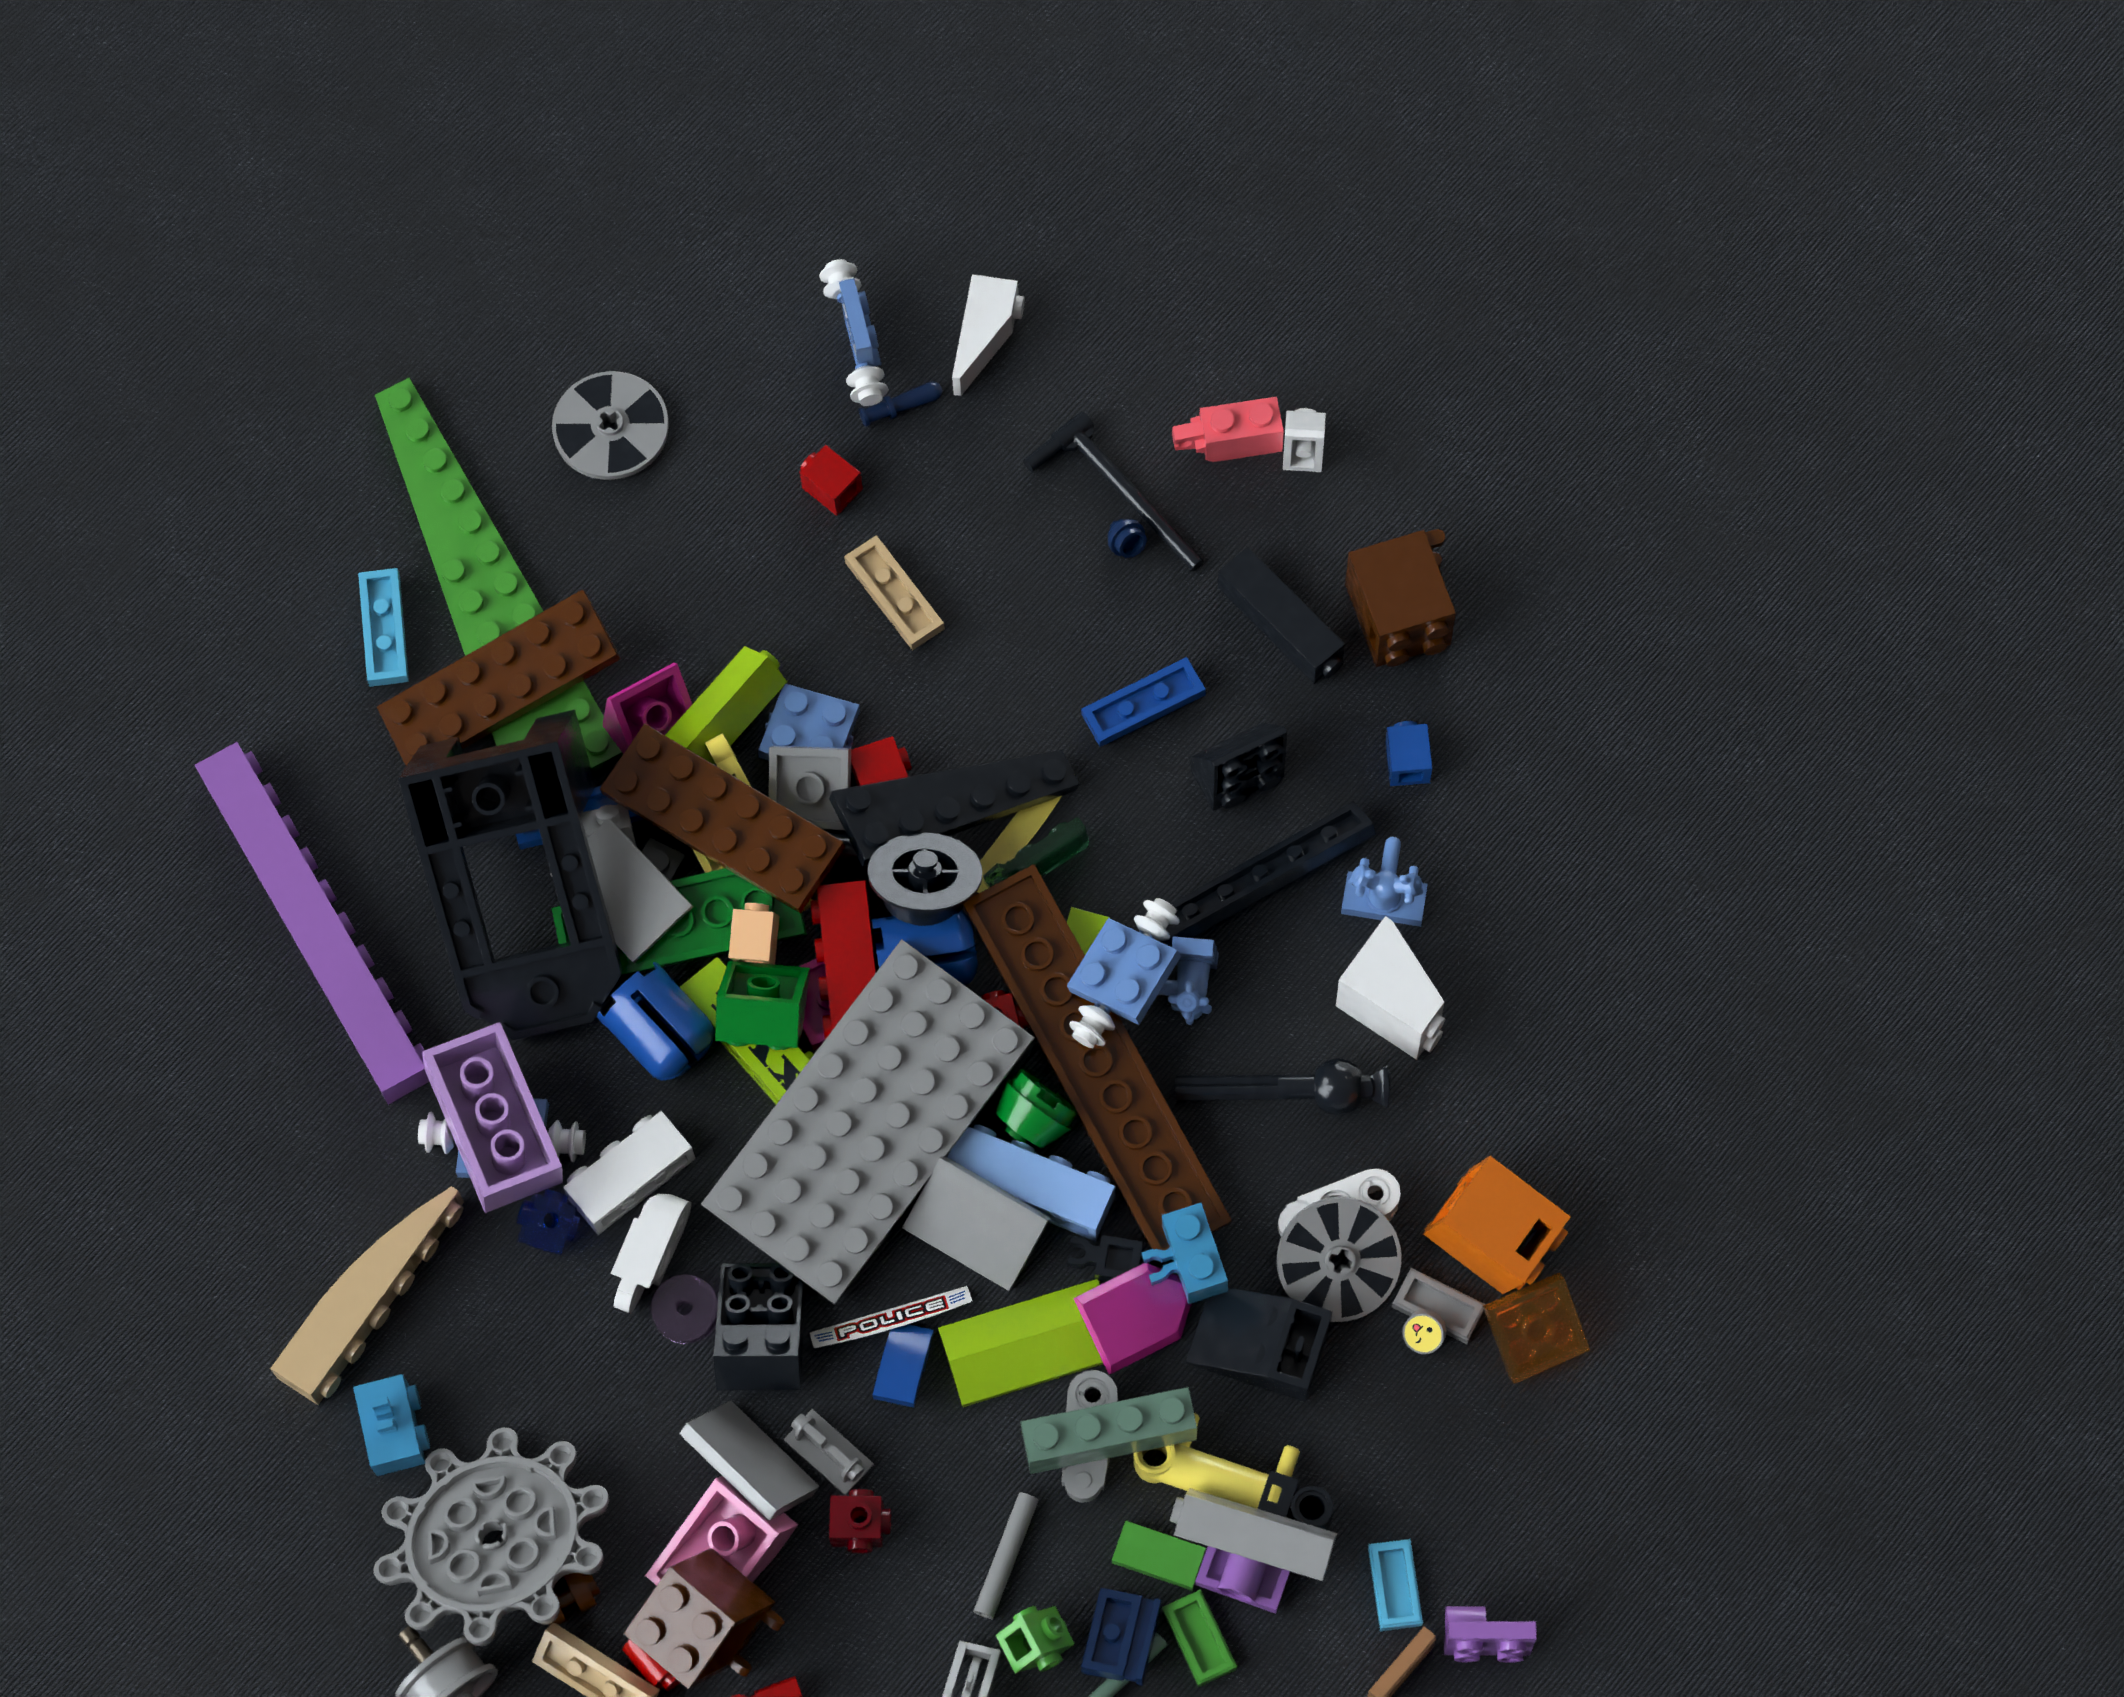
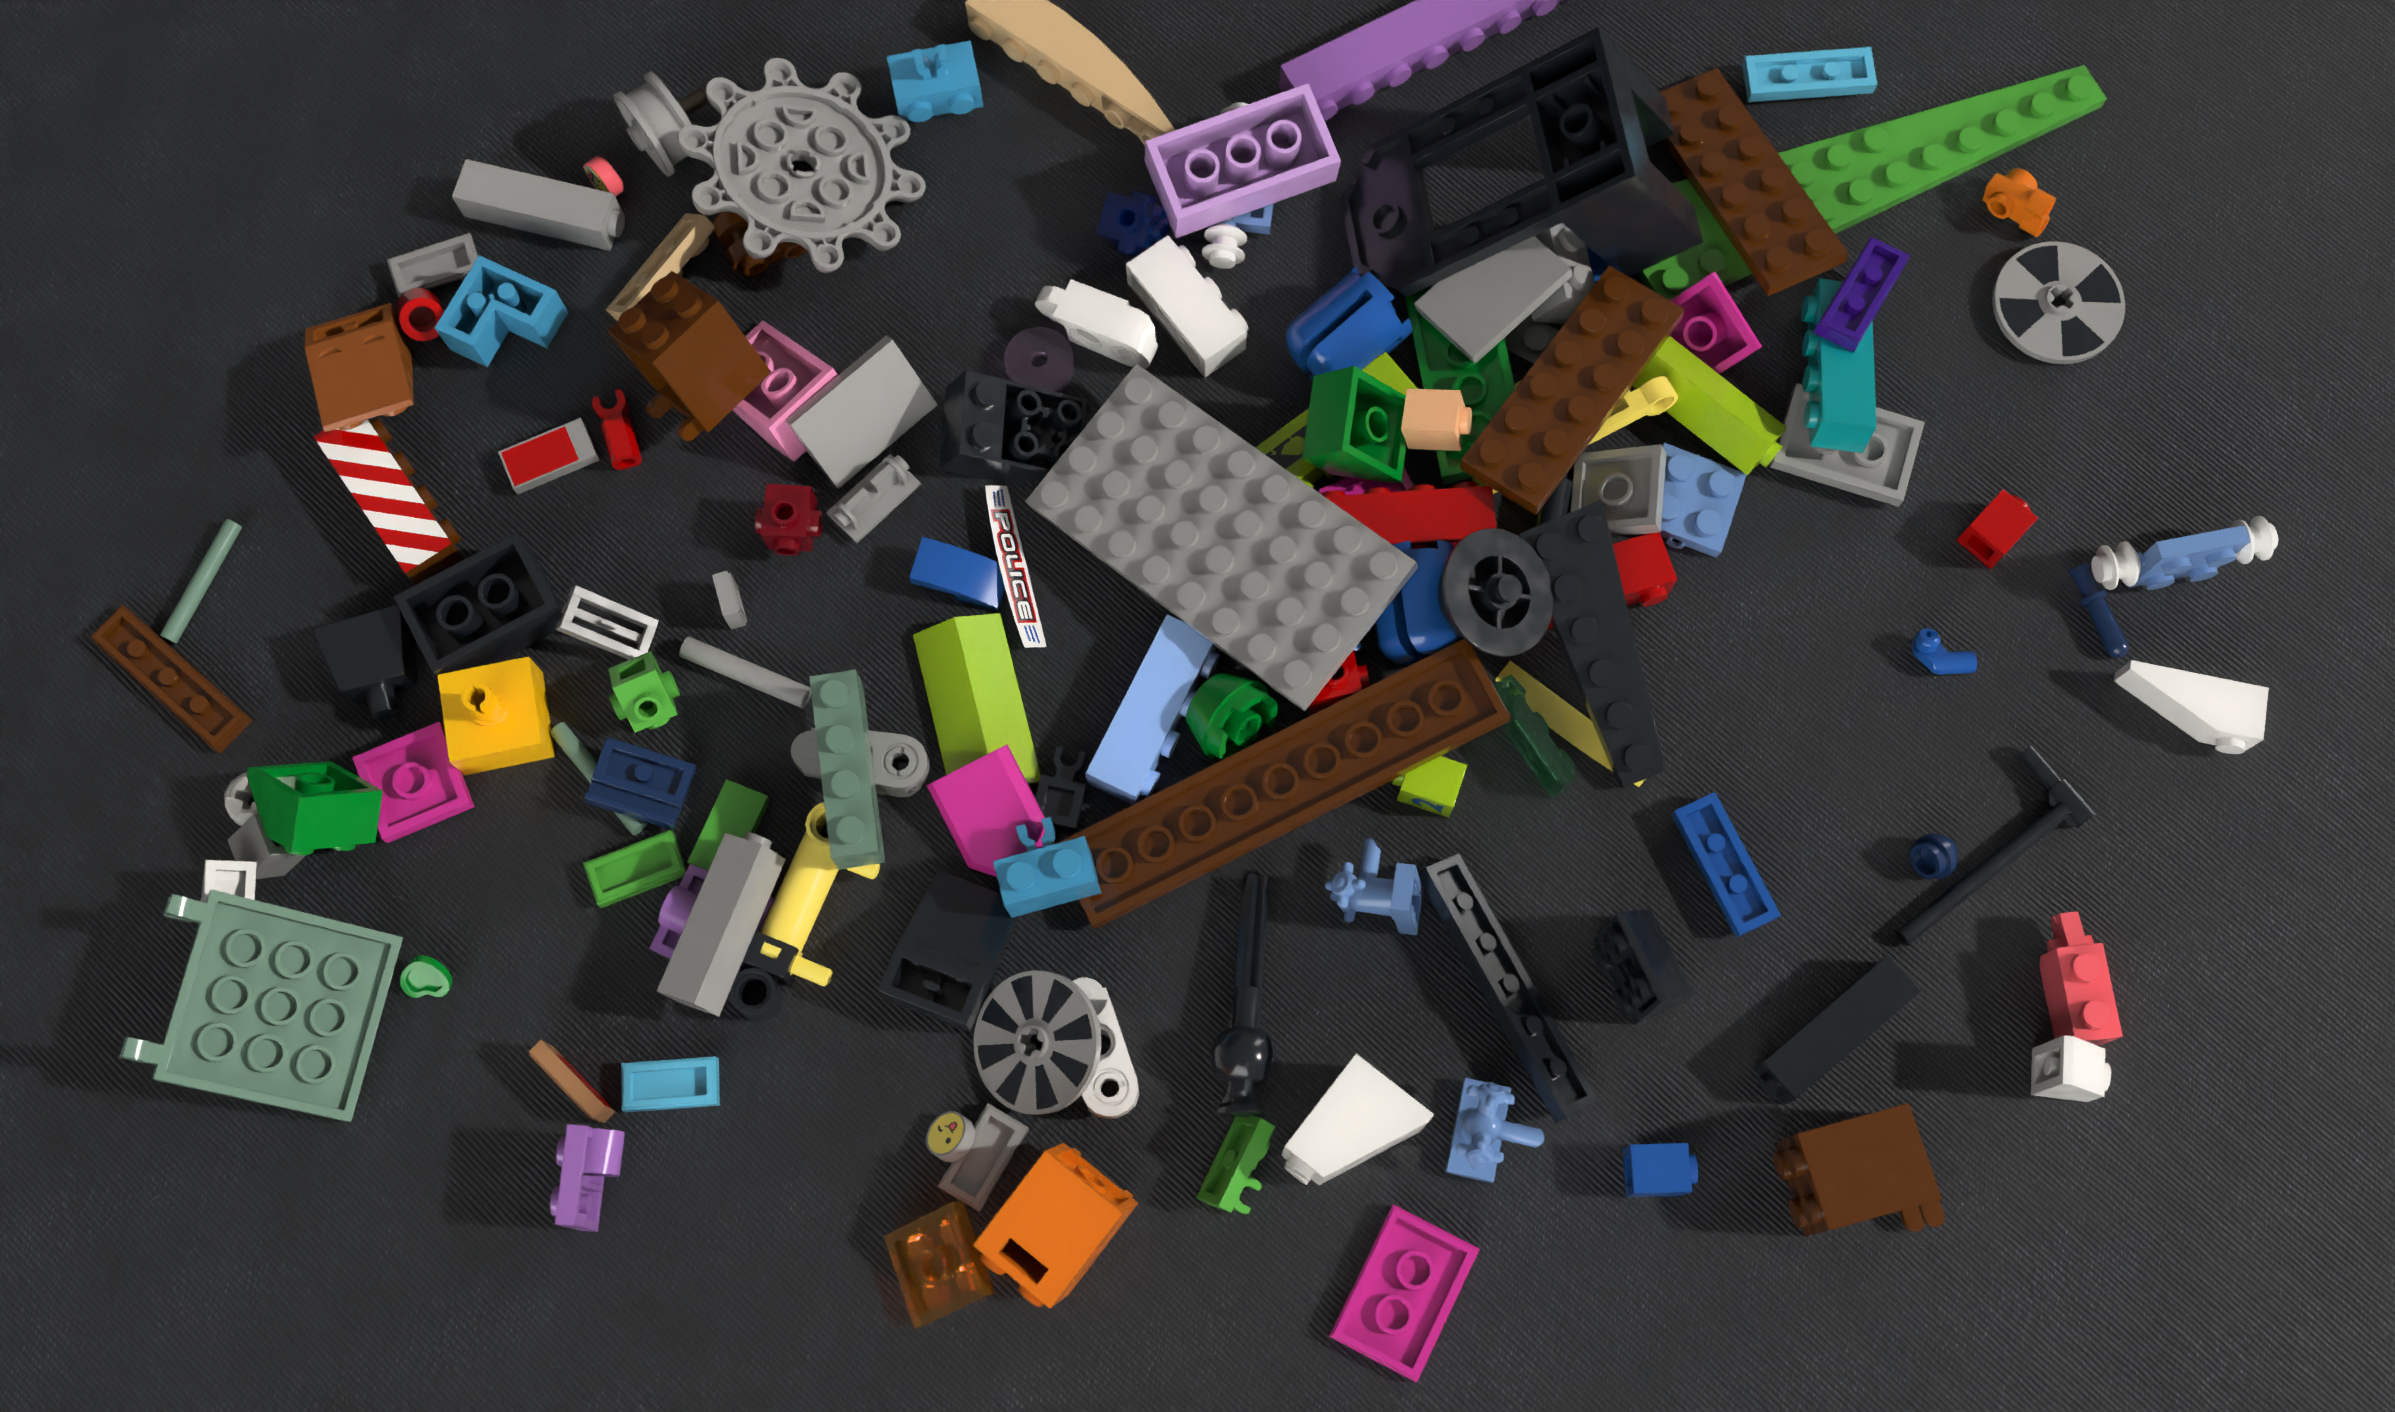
camera: 90 degrees right, 5 degrees up
(511, 458) = (2019, 199): none -> orange plate
(619, 580) = (1861, 294): none -> dark purple tile
(684, 601) = (1838, 381): none -> teal brick
(753, 597) = (1876, 473): none -> light grey plate
(894, 592) = (1859, 594): tan plate -> none
(938, 1572) = (729, 600): none -> light grey tile
(949, 532) = (1937, 659): none -> blue arm
(976, 1222) = (1105, 650): light grey tile -> none
(1123, 971) = (1375, 808): medium blue plate -> none
(1429, 1090) = (1238, 1155): none -> bright green plate
(1524, 954) = (1404, 1293): none -> dark pink tile

